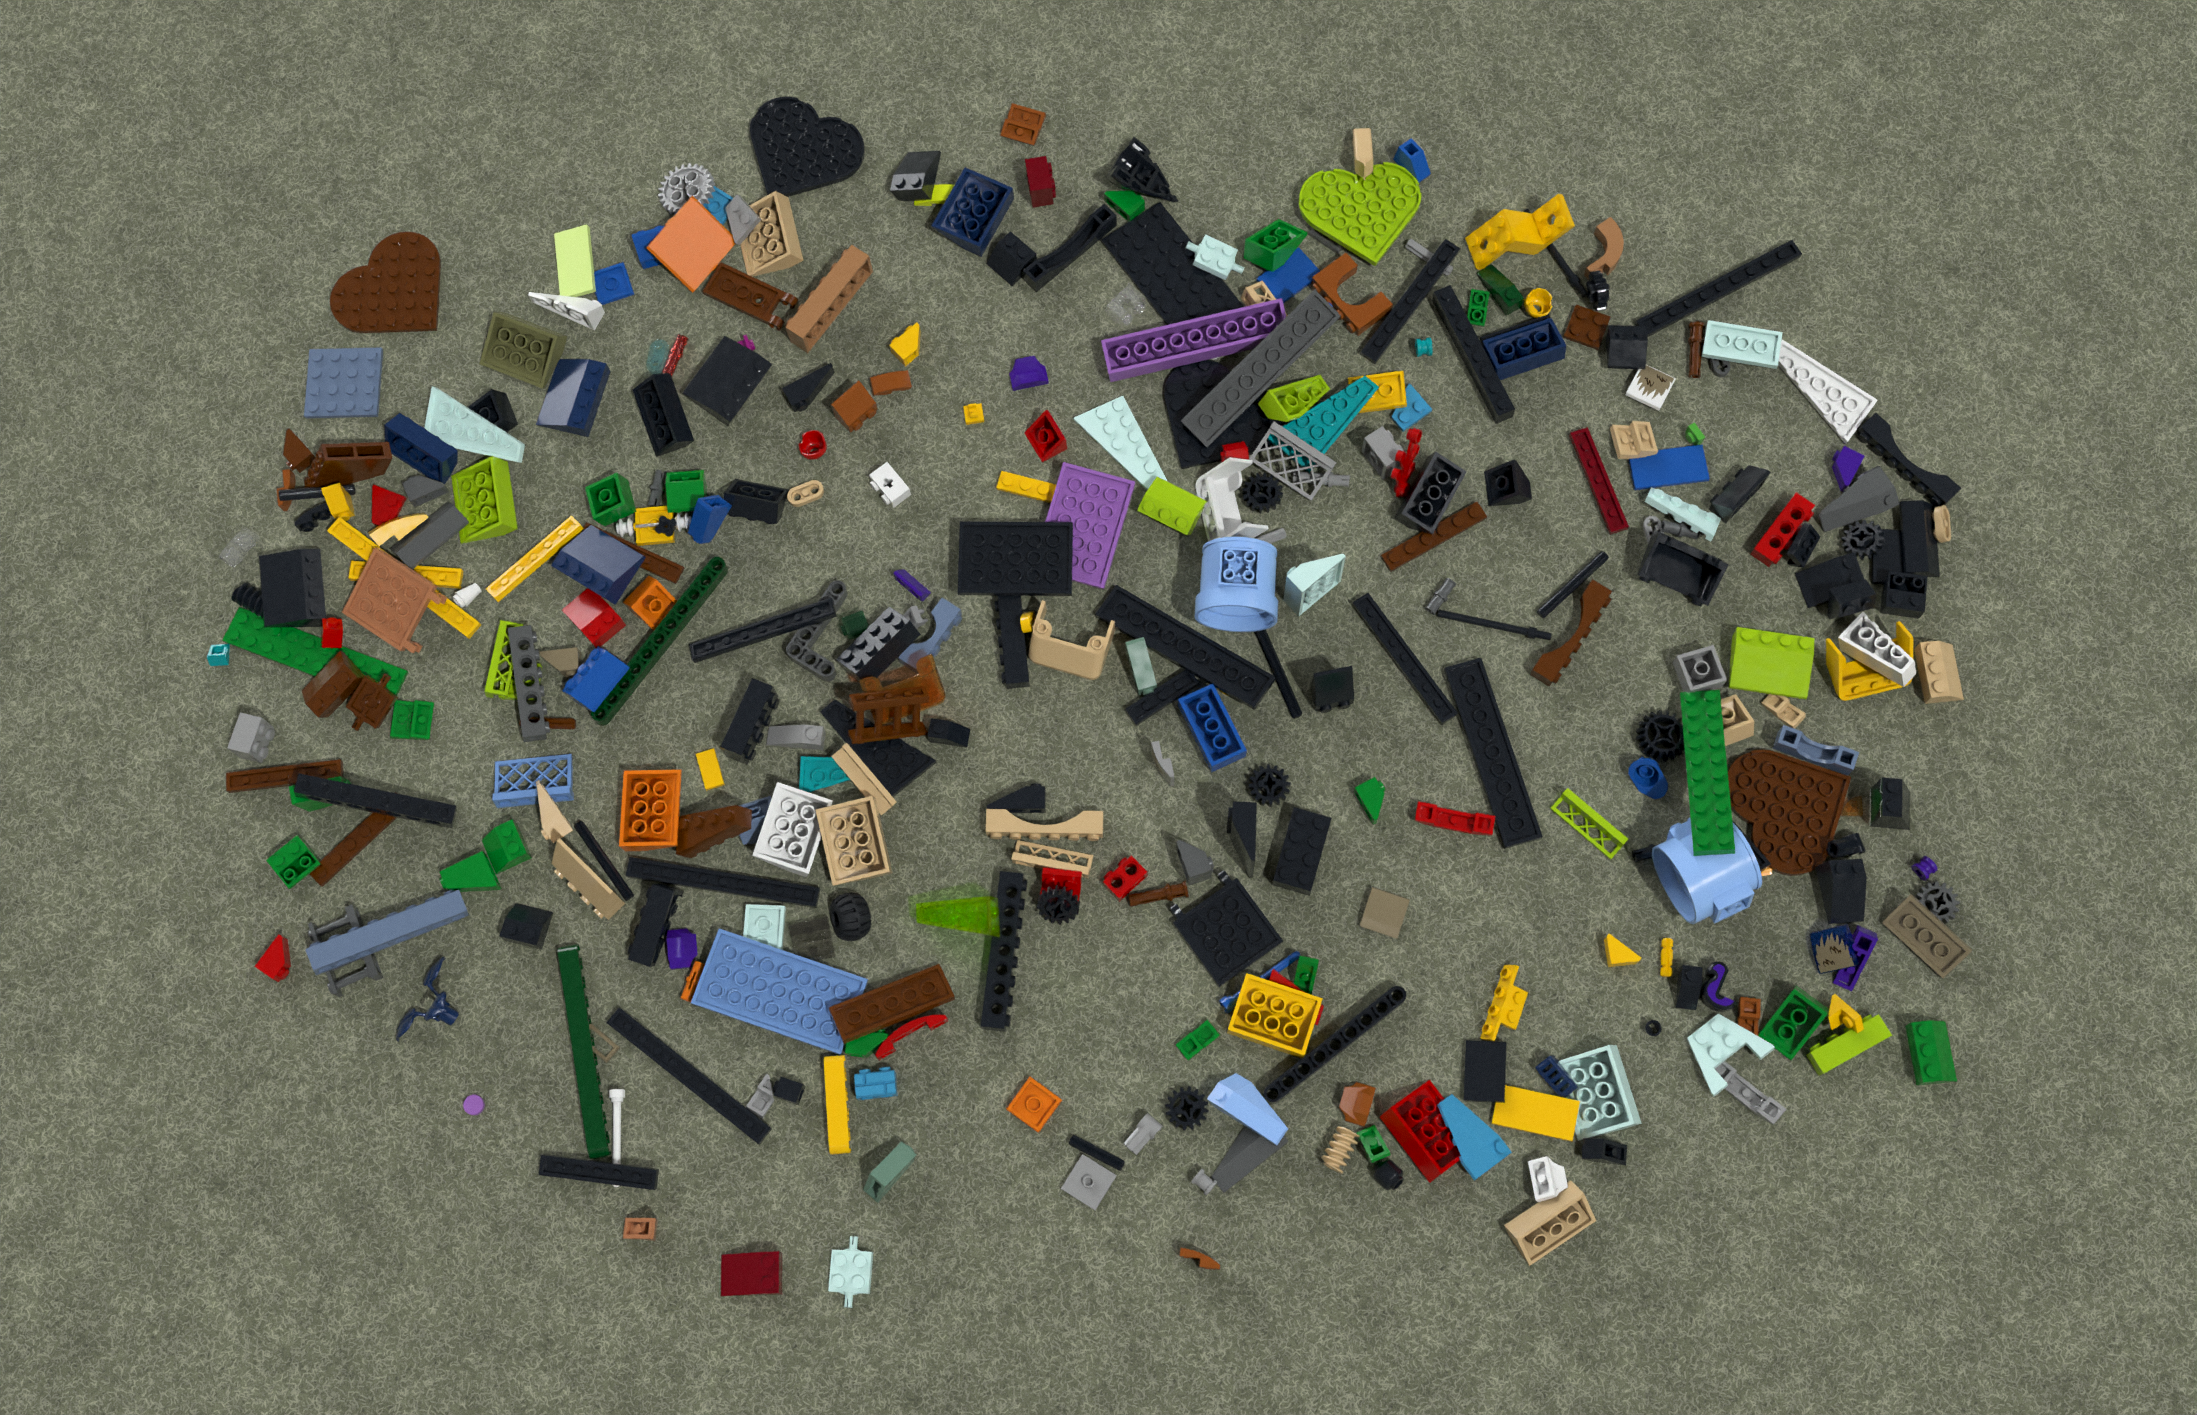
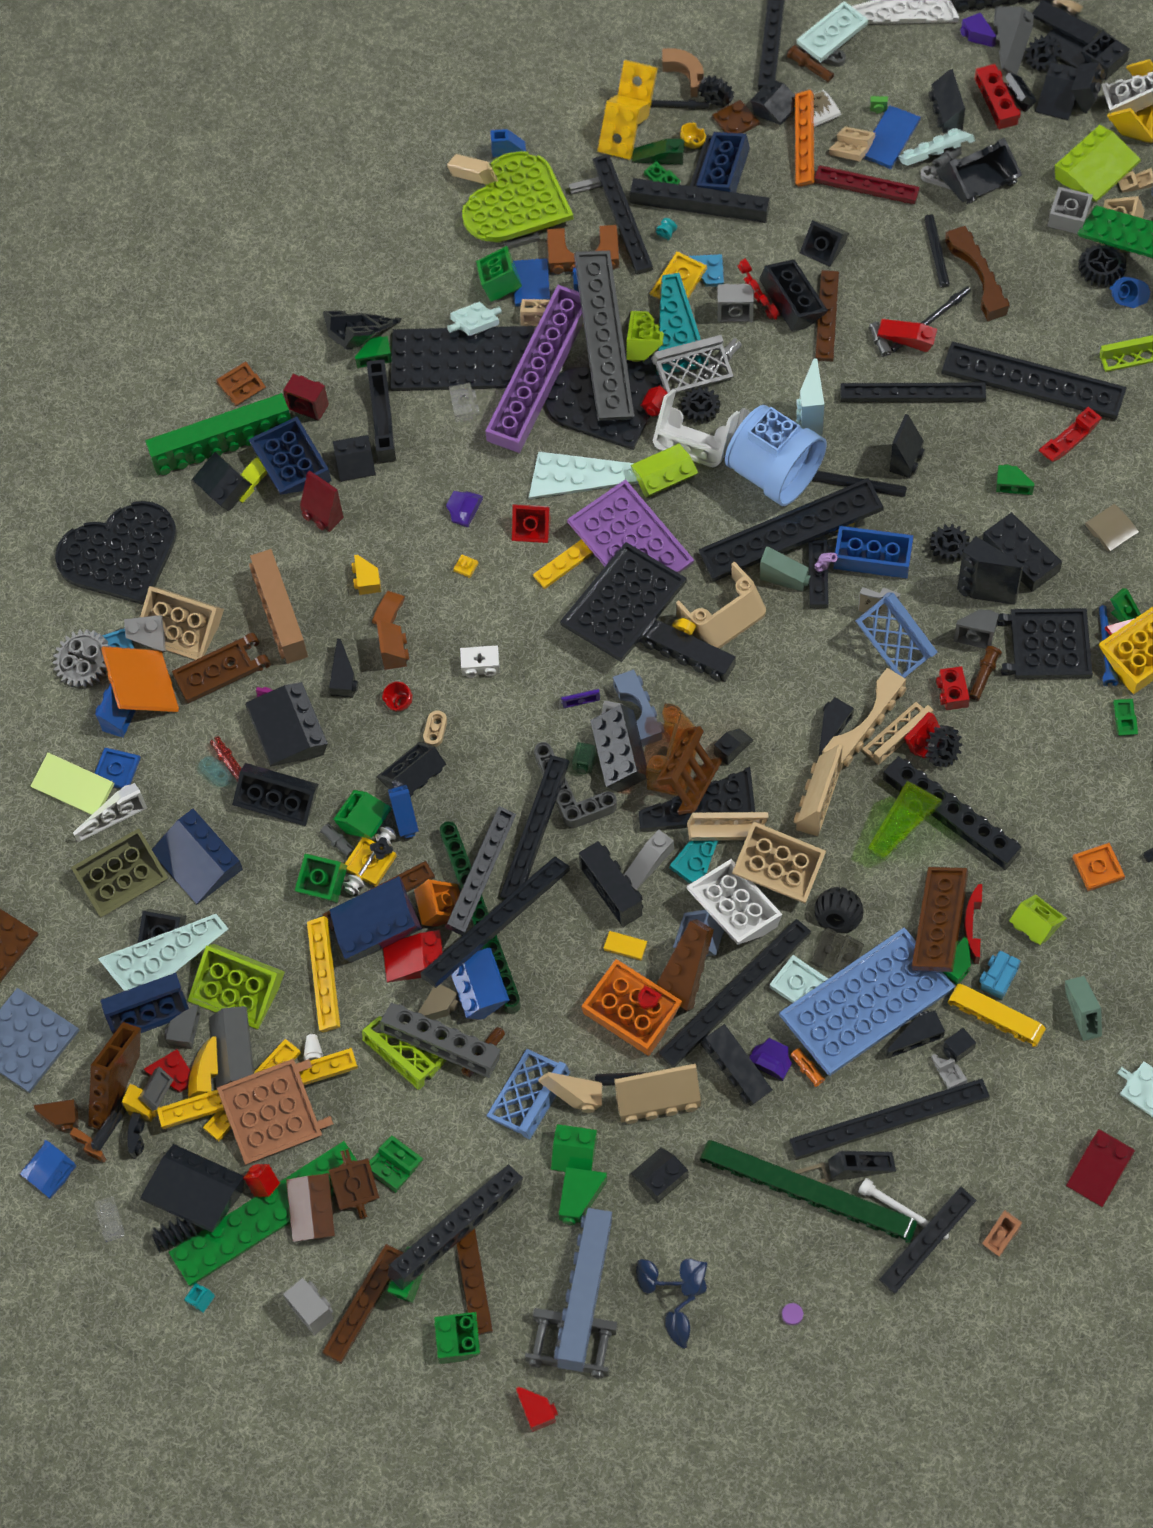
camera: 55 degrees left, 10 degrees down
(250, 476) = (48, 1169): none -> blue slope
(354, 504) = (156, 1088): none -> dark grey tile
(633, 1079) = (860, 1164): none -> black slope
(654, 655) = (494, 922): none -> black plate
(660, 817) = (648, 998): none -> red tile
(693, 614) = (480, 871): none -> black plate
(783, 1052) = (922, 1031): none -> black slope
(944, 264) = (321, 503): none -> dark red slope
(945, 832) = (819, 791): none -> tan slope
(949, 1084) = (1037, 919): none -> lime slope
(955, 141) = (215, 434): none -> green brick
(1150, 806) = (909, 626): none -> medium blue fence
(1171, 694) = (824, 561): none -> lavender arm
(1458, 614) = (908, 333): none -> red slope
(1605, 396) = (804, 138): none -> orange plate

